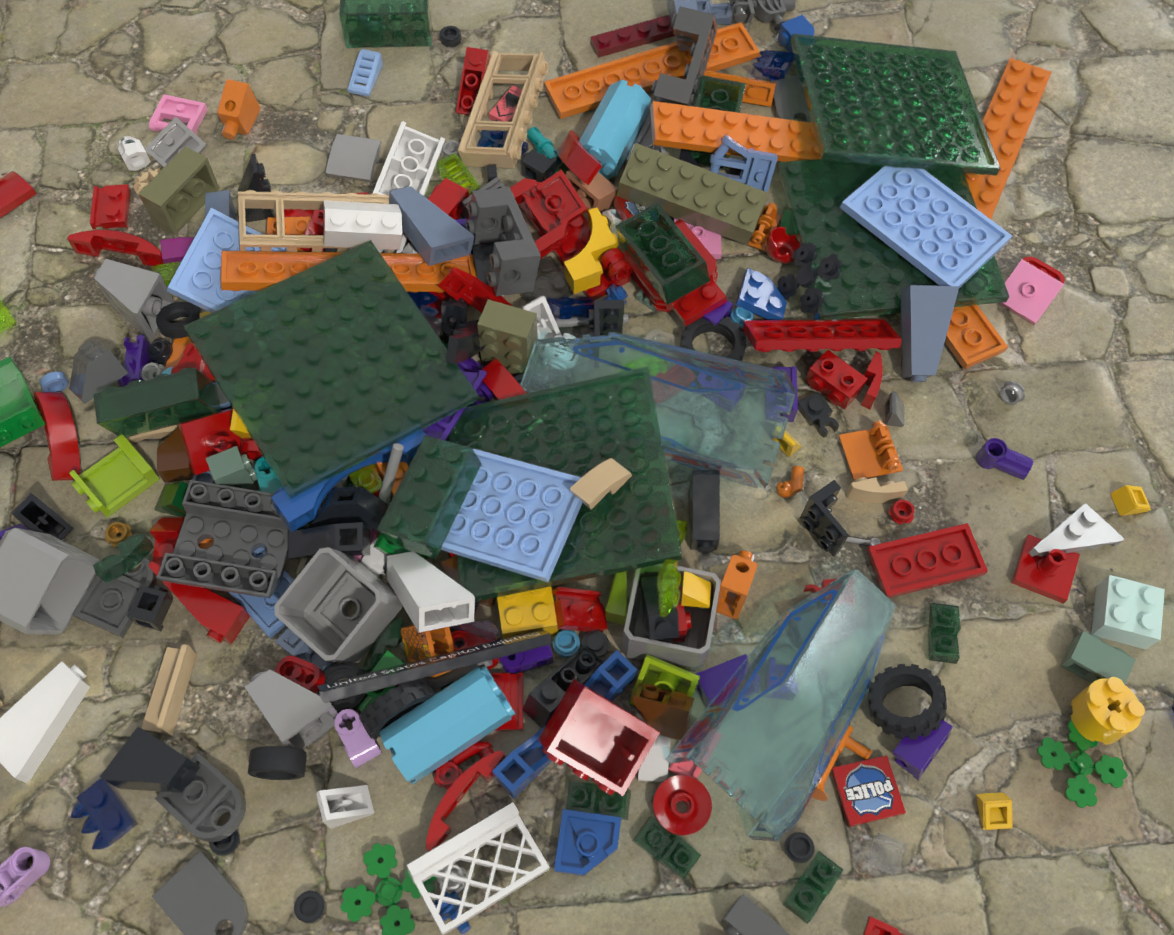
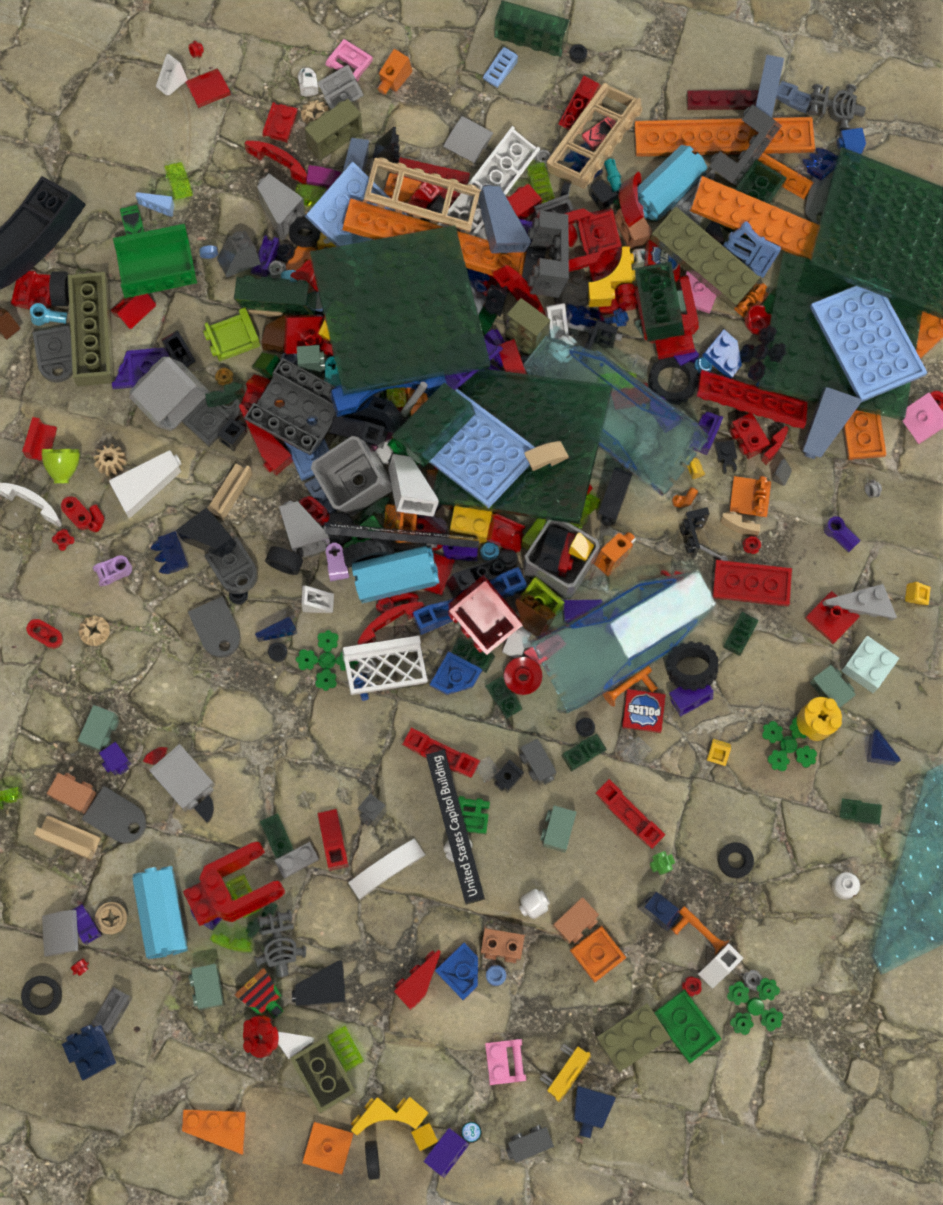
camera: 20 degrees right, 10 degrees up
(60, 435) = (204, 291): red slope -> none
(300, 872) = (280, 629): none -> clear blue slope
(358, 222) = (454, 208): white slope -> none
(463, 343) = (495, 322): black slope -> none
(667, 586) = (560, 537): clear neon green slope -> none

